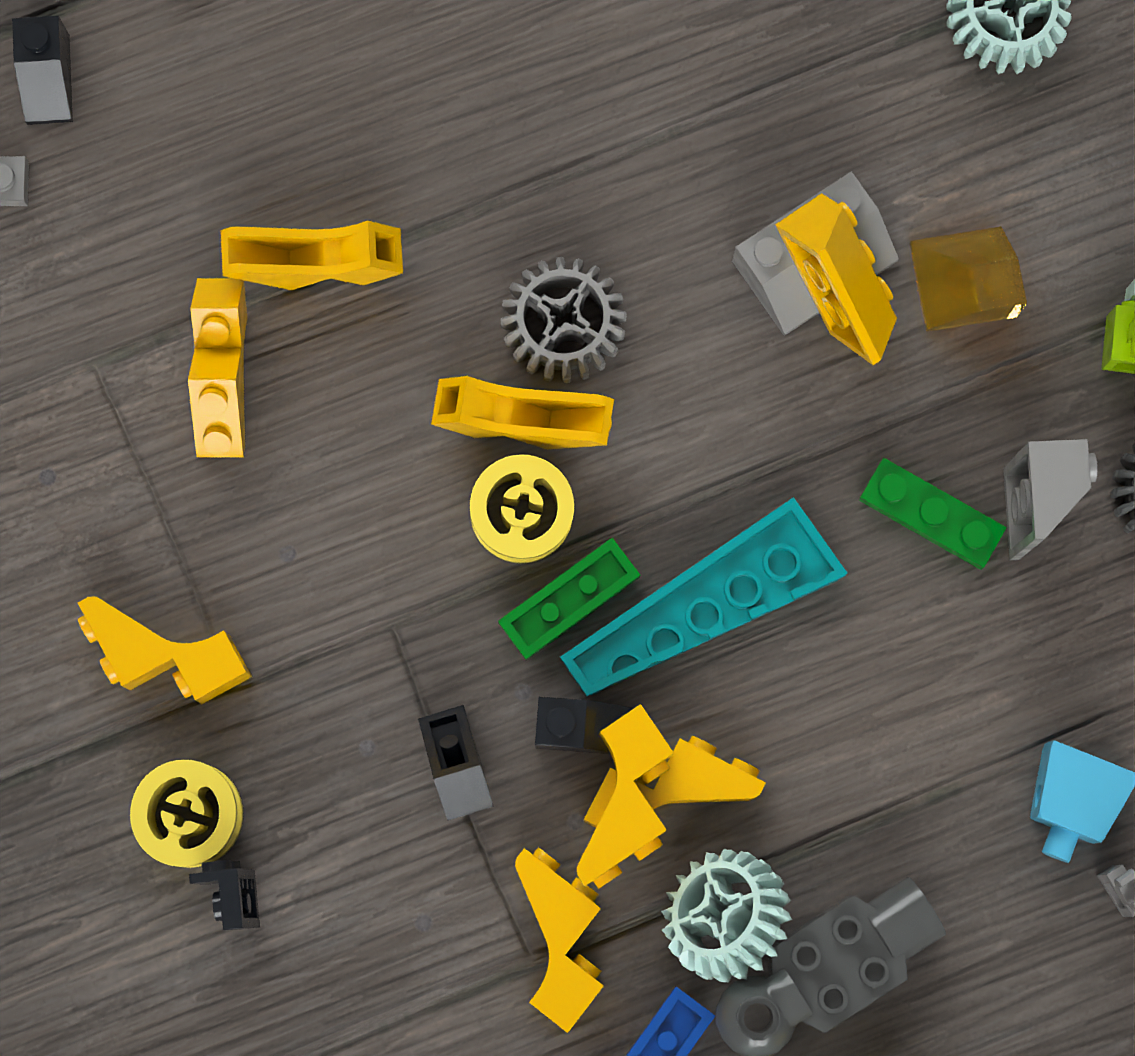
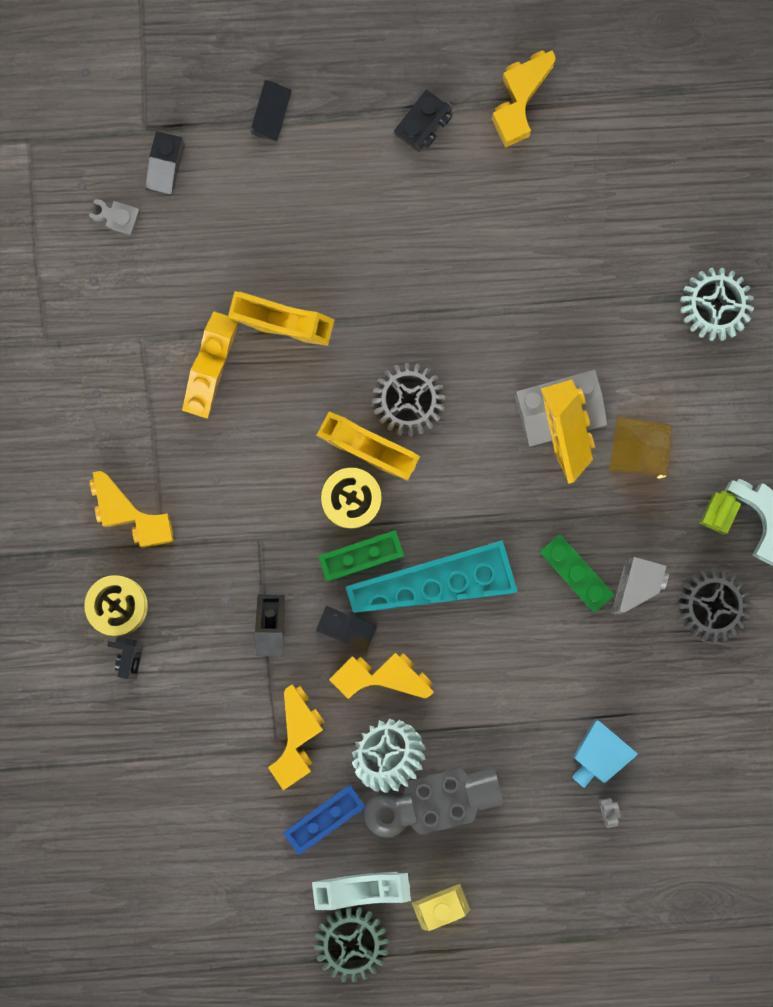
camera: 15 degrees right, 5 degrees up
(628, 821) = (352, 688): yellow arch -> none

